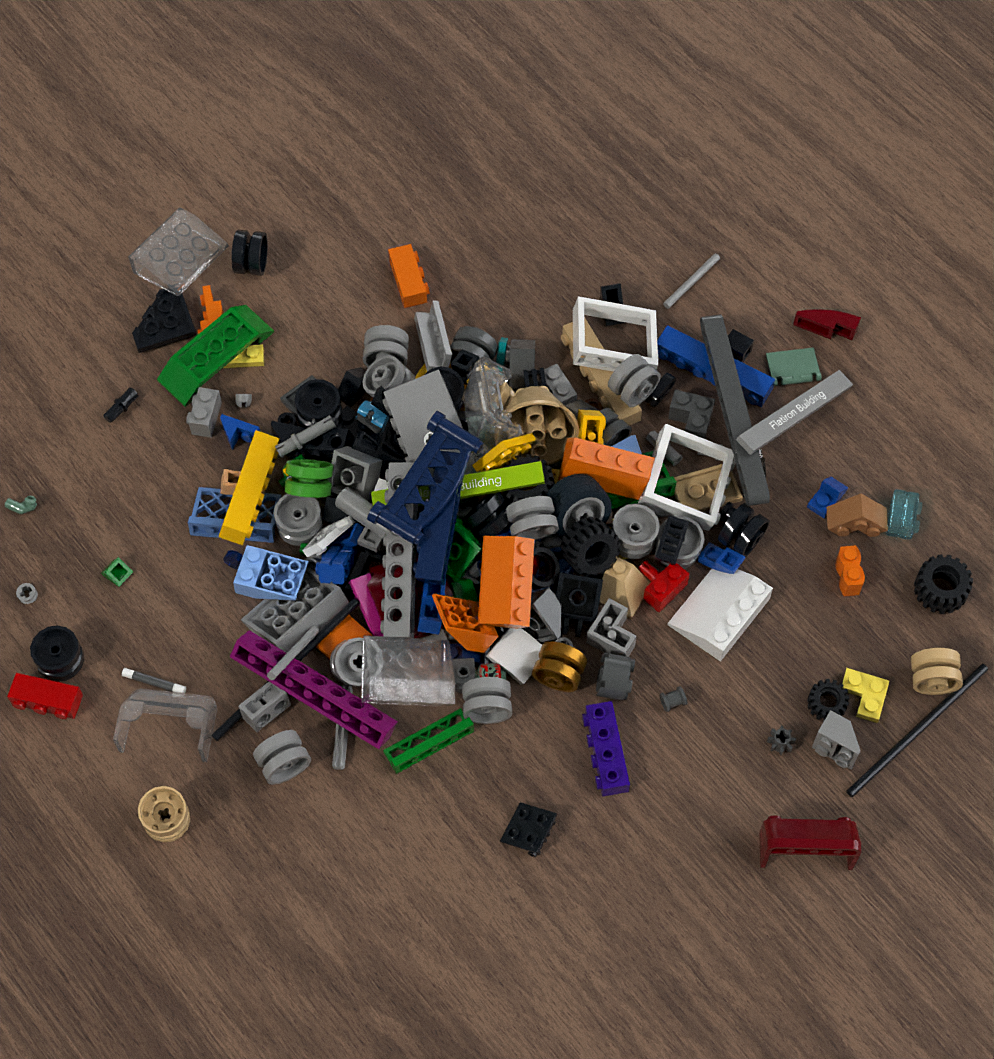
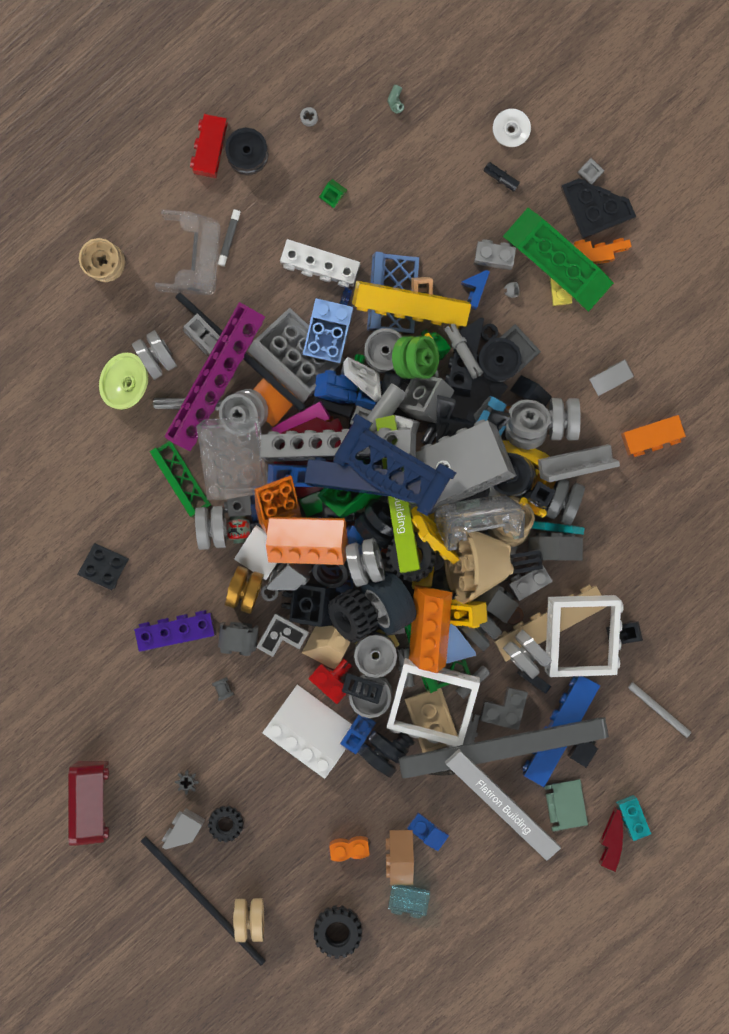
camera: 85 degrees right, 25 degrees up
(69, 386) = (515, 119): none -> white dish
(125, 325) = (590, 171): none -> light grey tile
(177, 252) = (669, 212): clear slope -> none
(193, 584) = (320, 263): none -> white brick
(249, 252) = (669, 281): black wheel -> none
(292, 653) = (241, 356): light grey bar -> none
(300, 804) = (123, 381): none -> yellowish green dish
(344, 310) = (611, 377): none -> light grey slope
(803, 299) = (633, 818): none -> teal brick
(870, 689) = (237, 862): light yellow plate -> none

